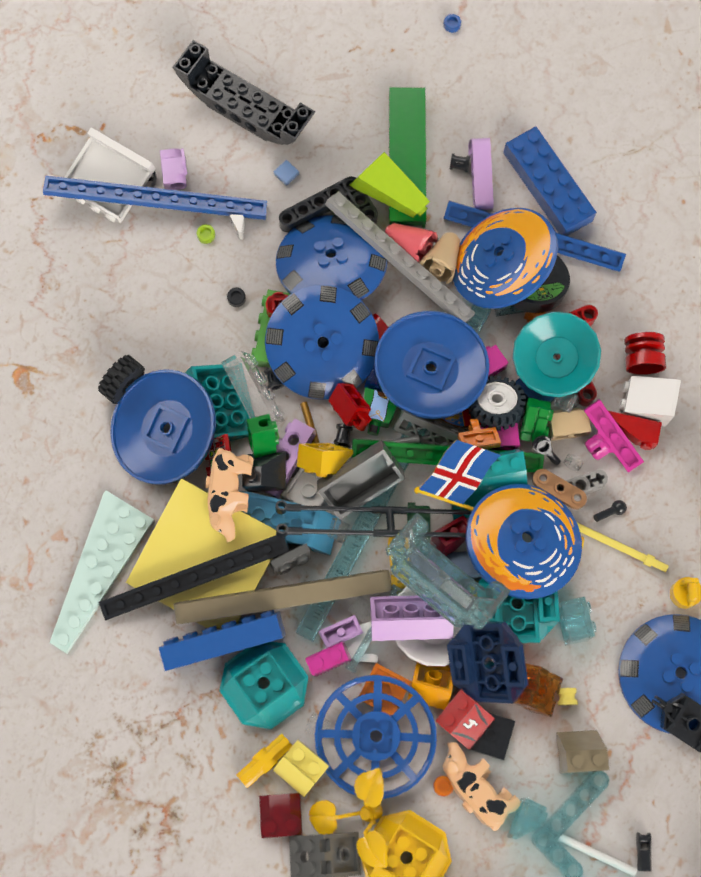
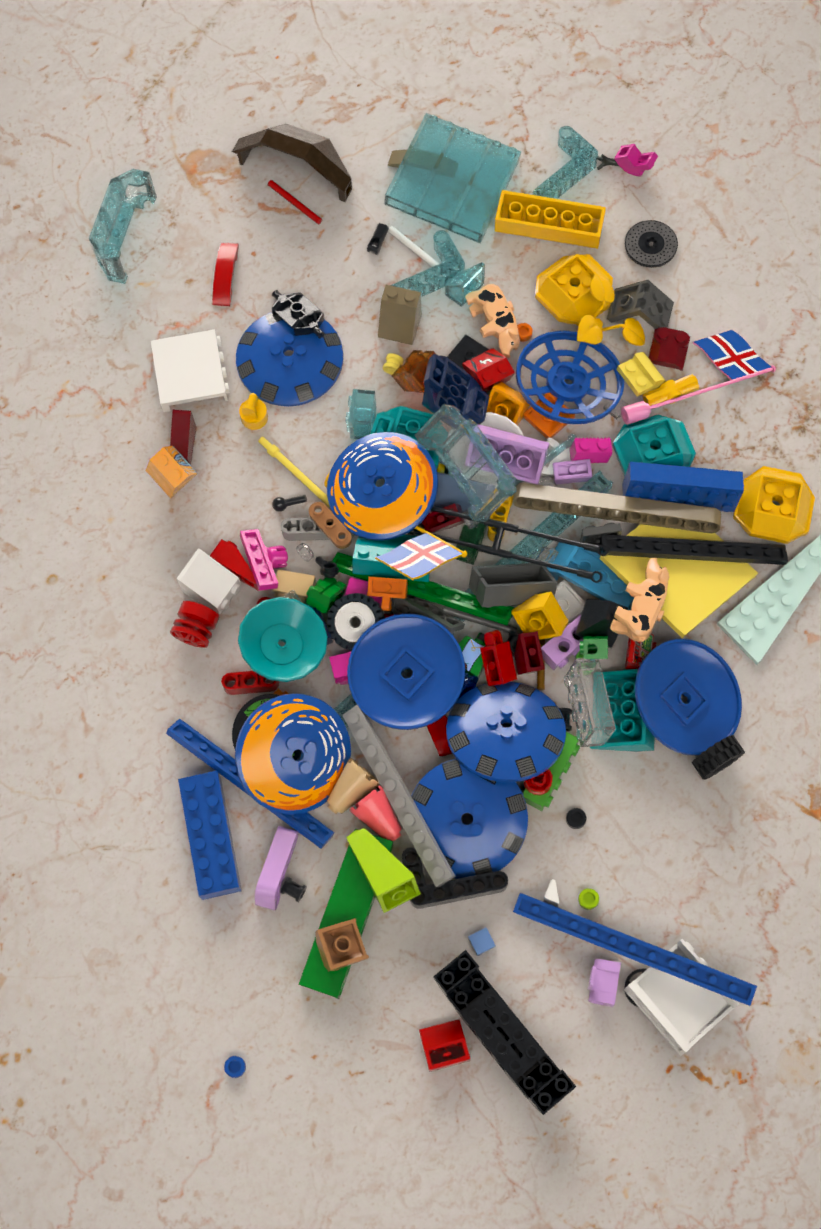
camera: 155 degrees left, 5 degrees down
(139, 676) = (770, 521): none -> yellow piece
(209, 827) = (728, 353): none -> flag
(290, 81) = (444, 1045): none -> red slope
(323, 421) = (528, 653): none -> dark red slope
(400, 119) = (340, 945): none -> medium nougat slope

